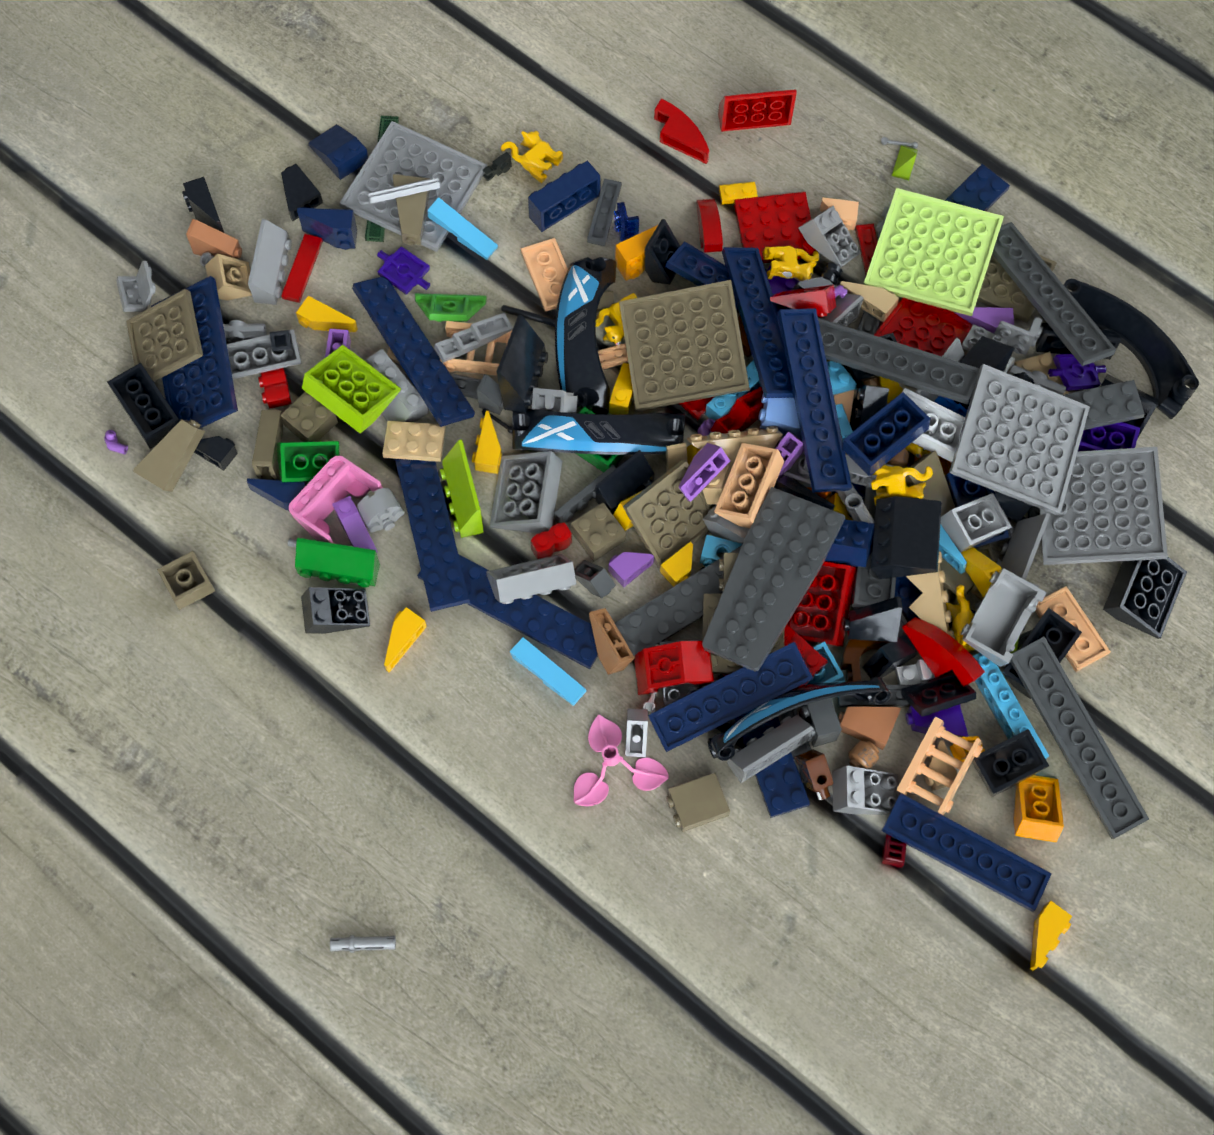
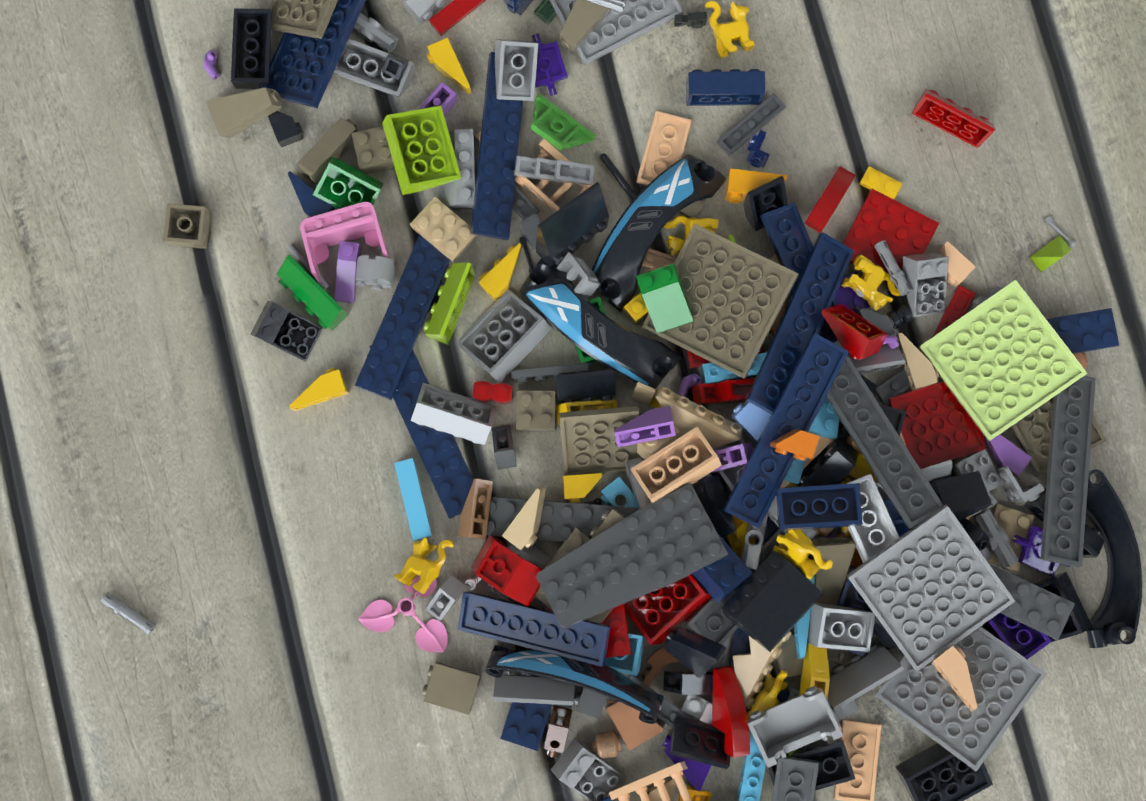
camera: 40 degrees right, 15 degrees up
(275, 388) = (367, 104): red brick -> none
(384, 281) = (515, 69): none -> light grey slope
(466, 232) = (618, 59): medium azure slope -> none
(597, 718) = (420, 566): none -> yellow animal
(629, 566) = (538, 457): medium lavender slope -> none
(638, 370) = (665, 298): none -> slope
(662, 621) = (526, 524): none -> tan slope
(680, 132) = (873, 91): red slope -> none
(804, 244) = (895, 272): none -> light grey pin
(833, 398) = (797, 442): none -> orange slope
(1095, 494) = (956, 673): none -> light nougat slope

